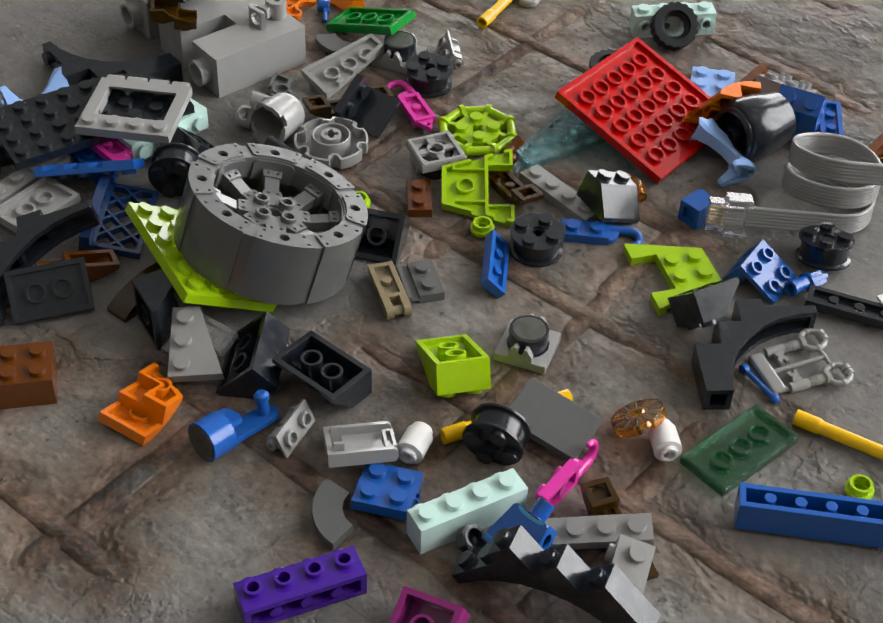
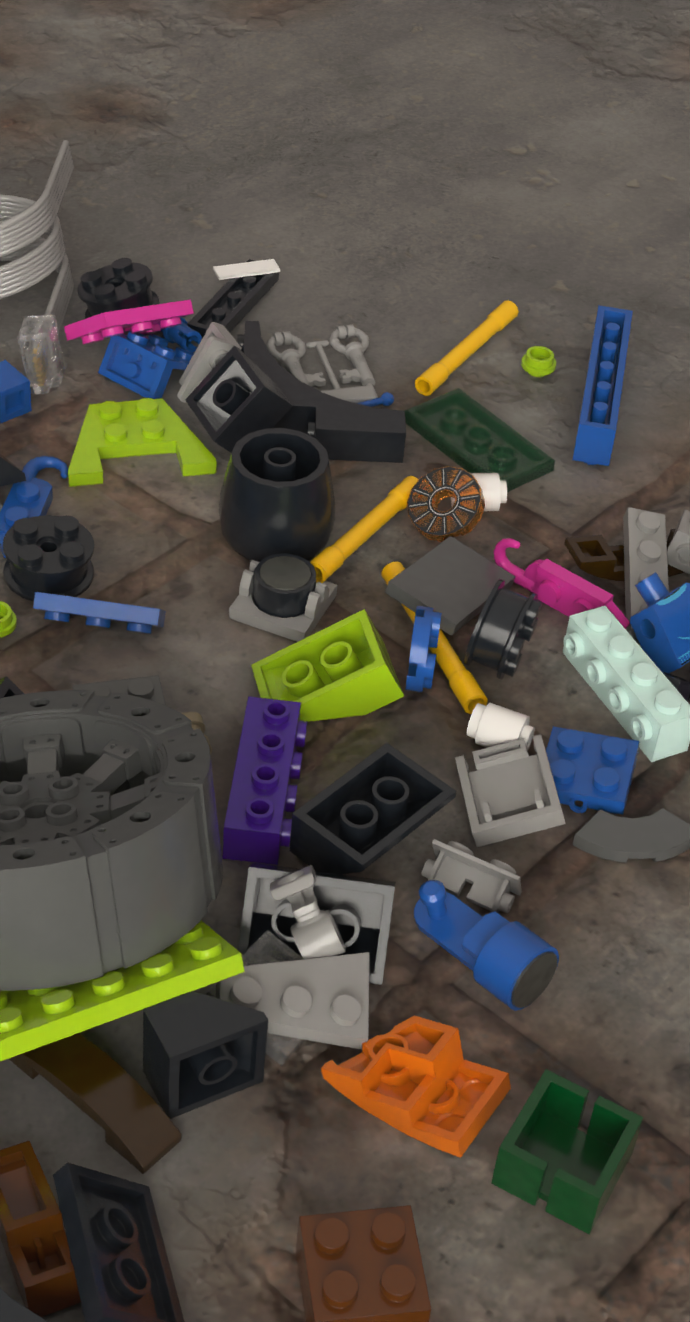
camera: 90 degrees left, 0 degrees up
(89, 450) = (558, 1162): none -> dark green piece
(229, 347) = (315, 929): none -> light grey leg
(366, 333) = (262, 781): none -> dark purple brick
(466, 382) = (421, 662): none -> blue plate
(564, 359) = (334, 556): none -> yellow piece
(602, 321) = (277, 495): none -> black piece
(752, 288) = (209, 353): none -> light grey bracket
(790, 257) = (140, 319): none -> dark pink plate

